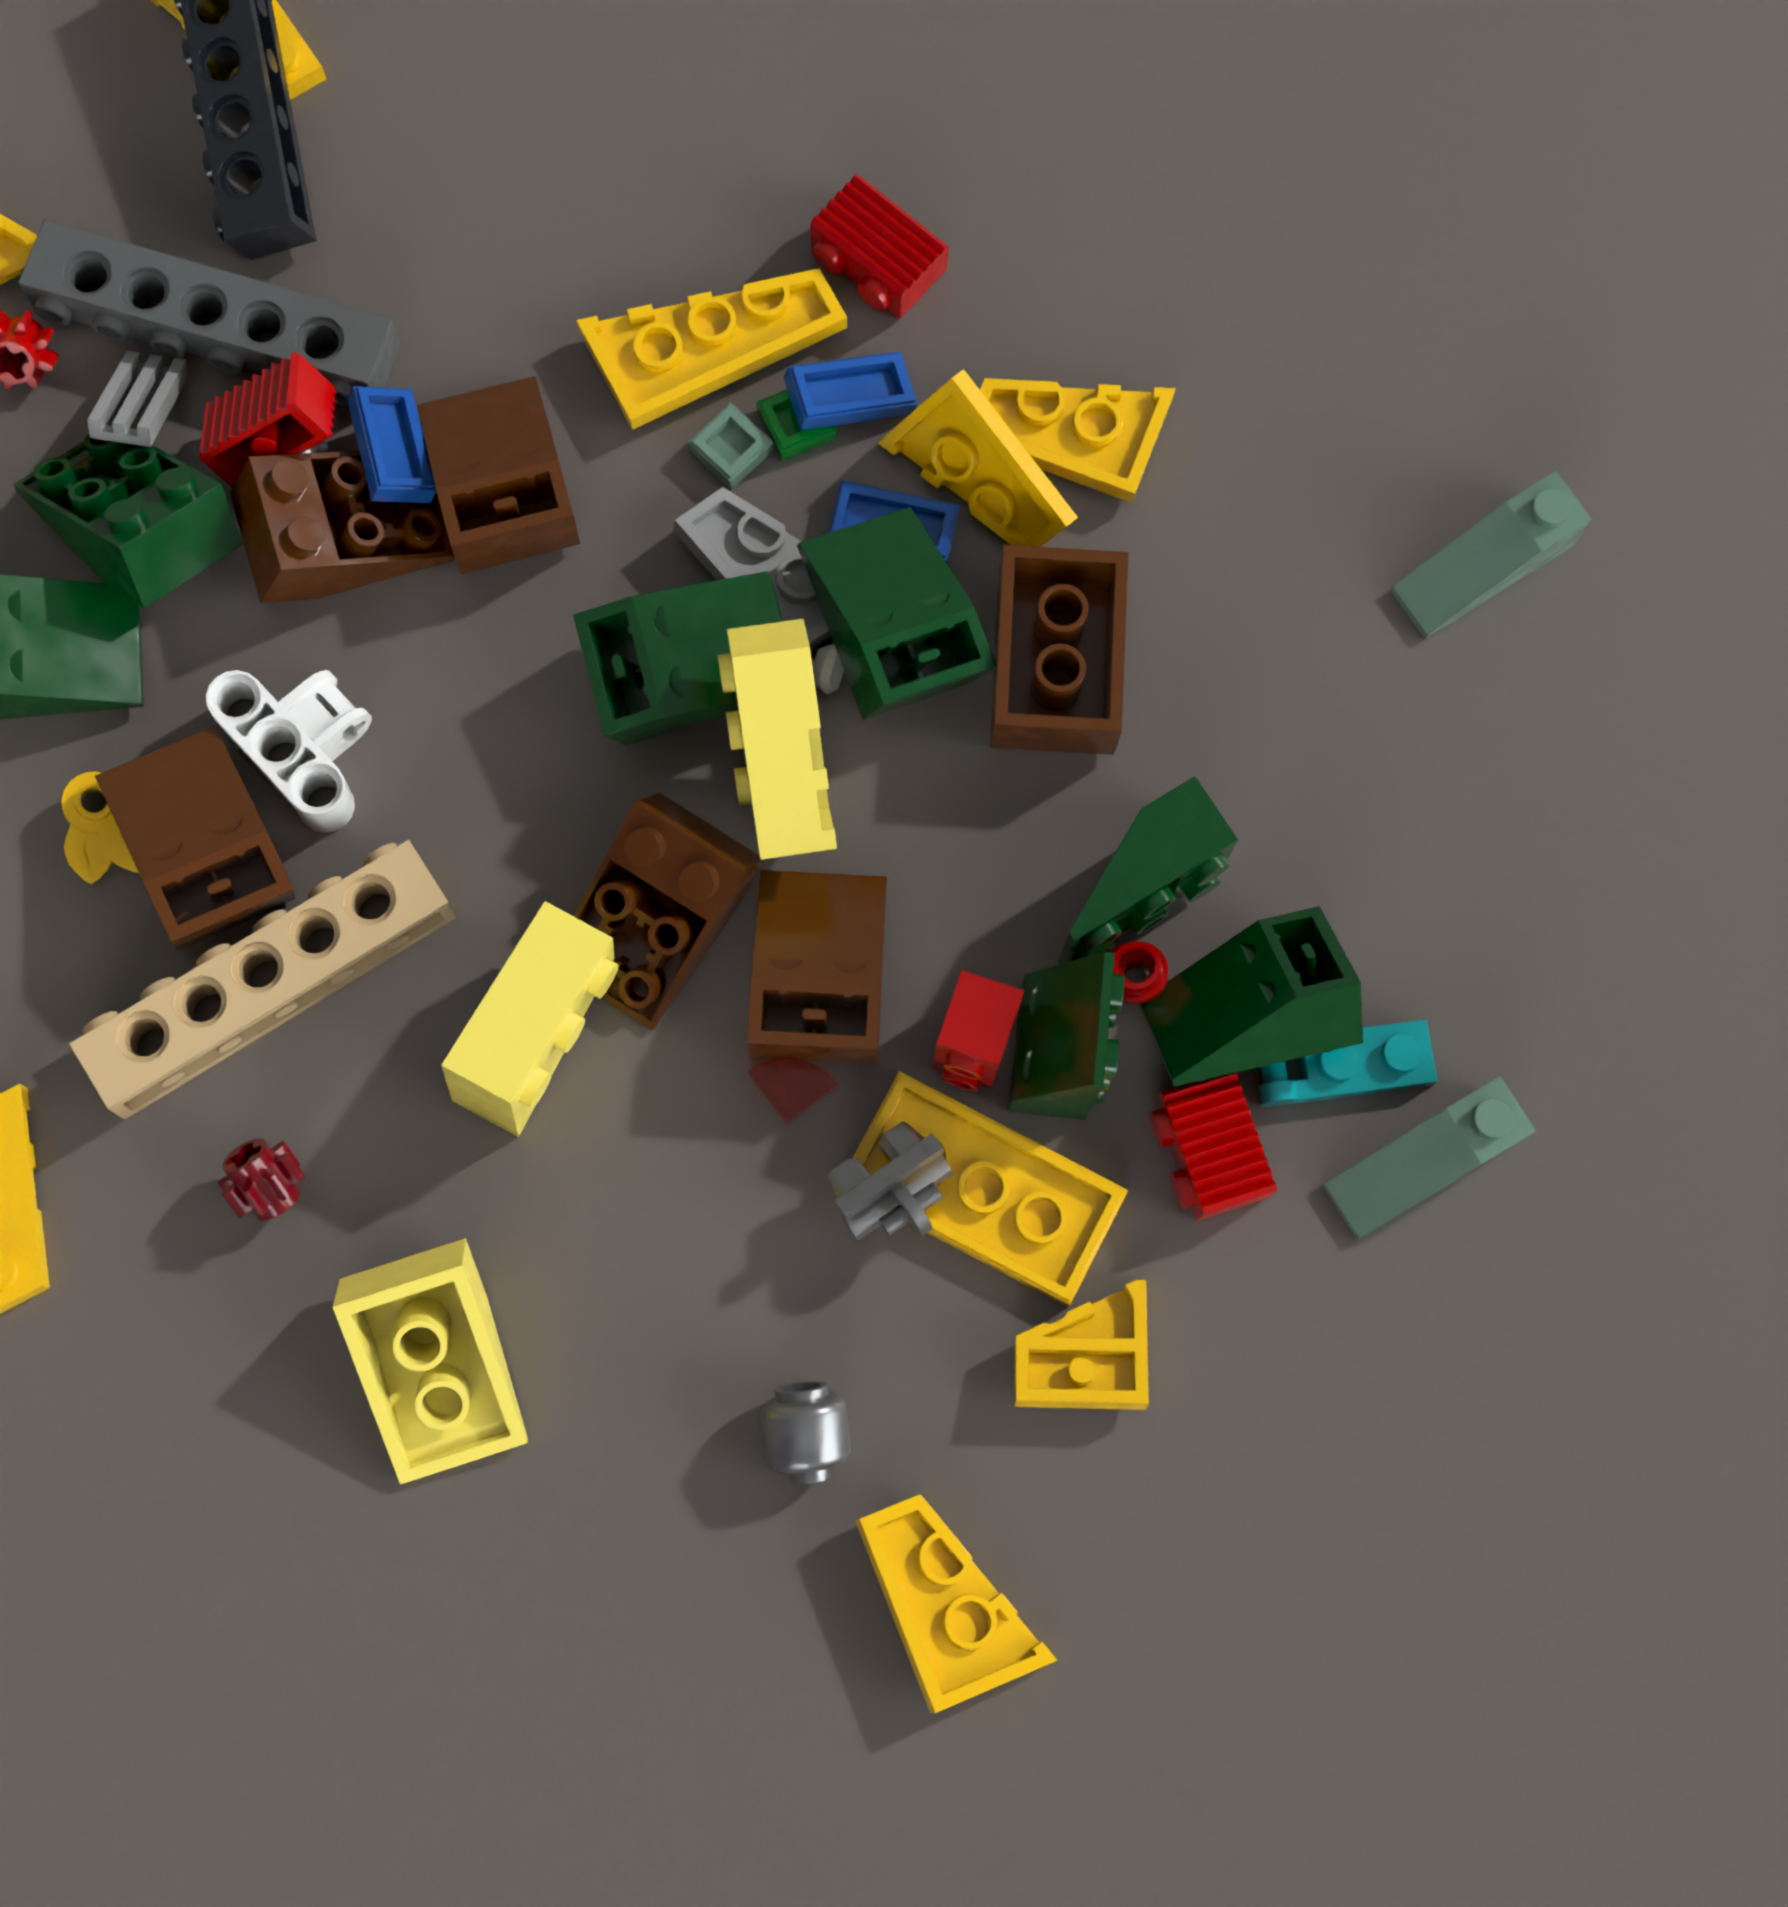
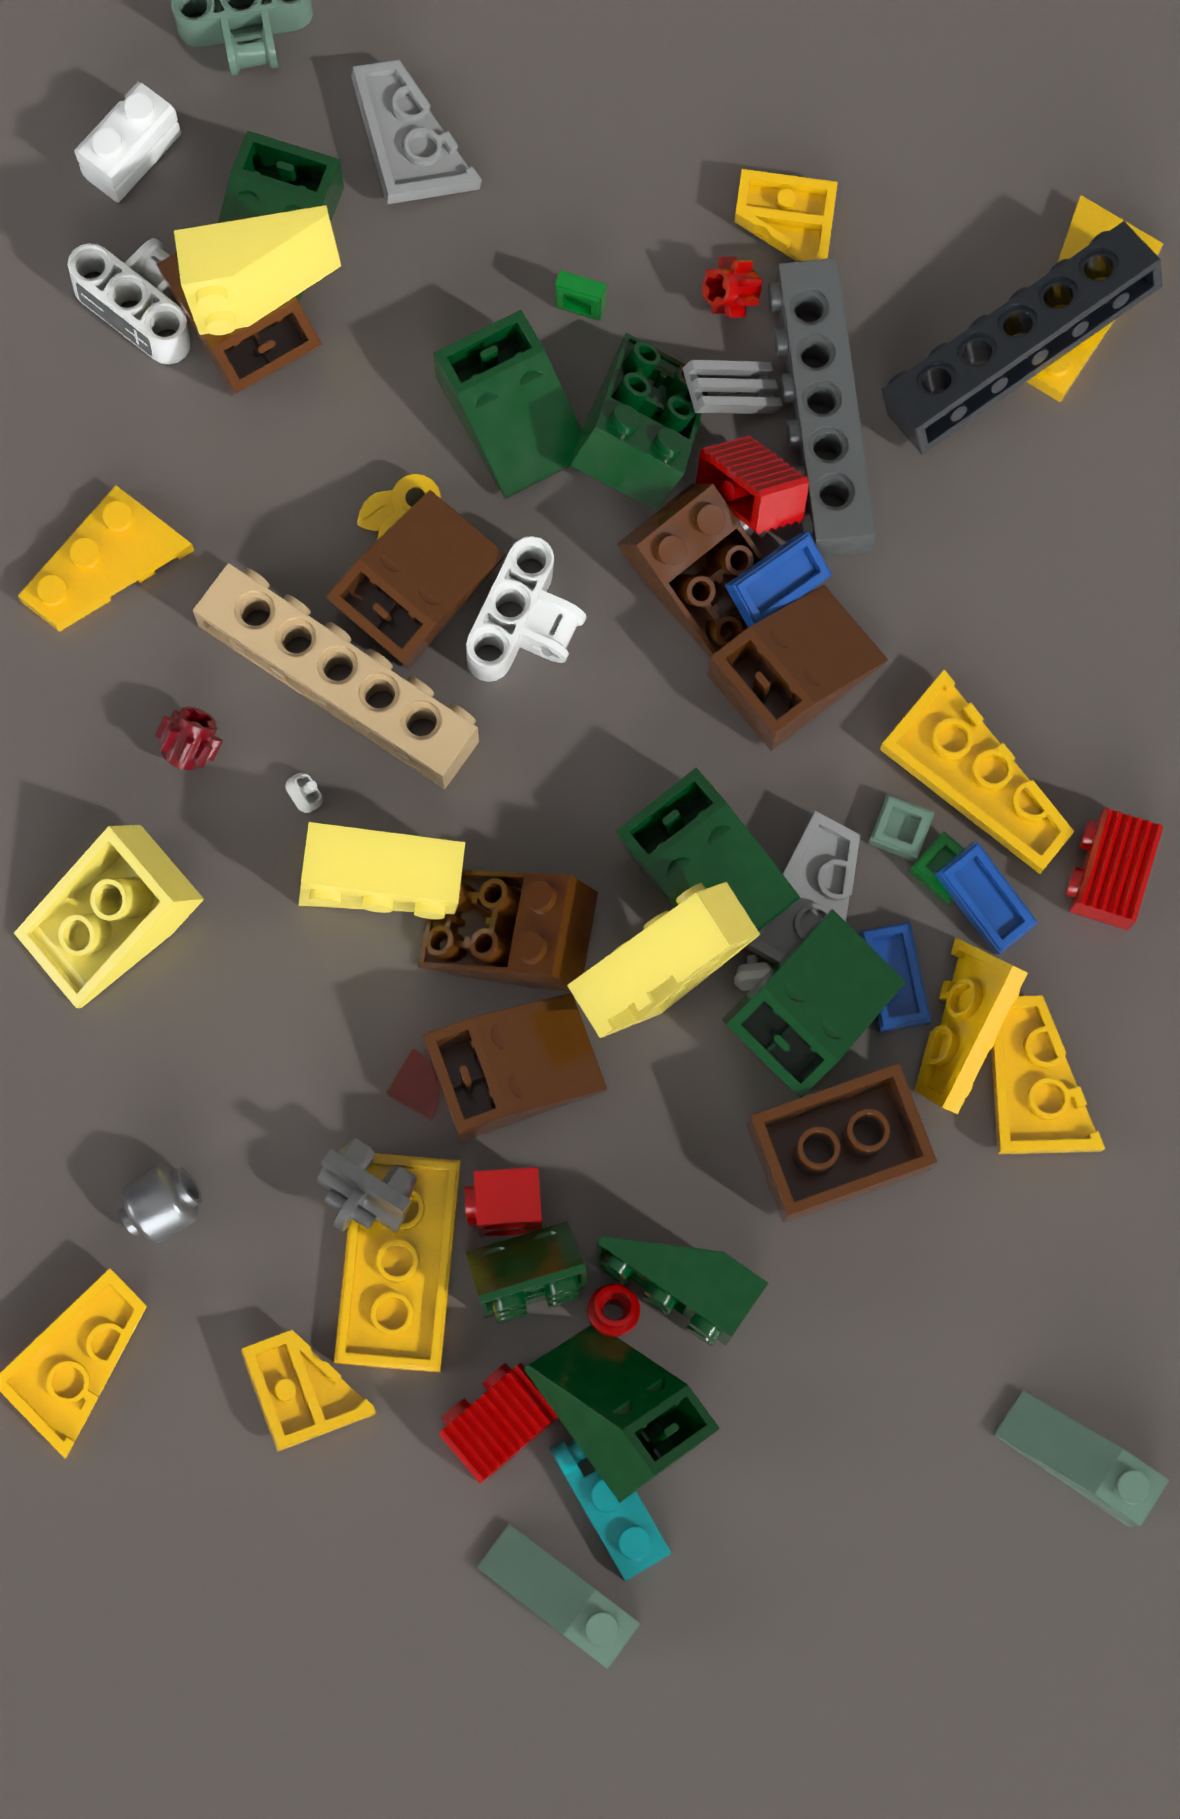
camera: 70 degrees right, 0 degrees up
(387, 1074) = (304, 792): none -> white rock

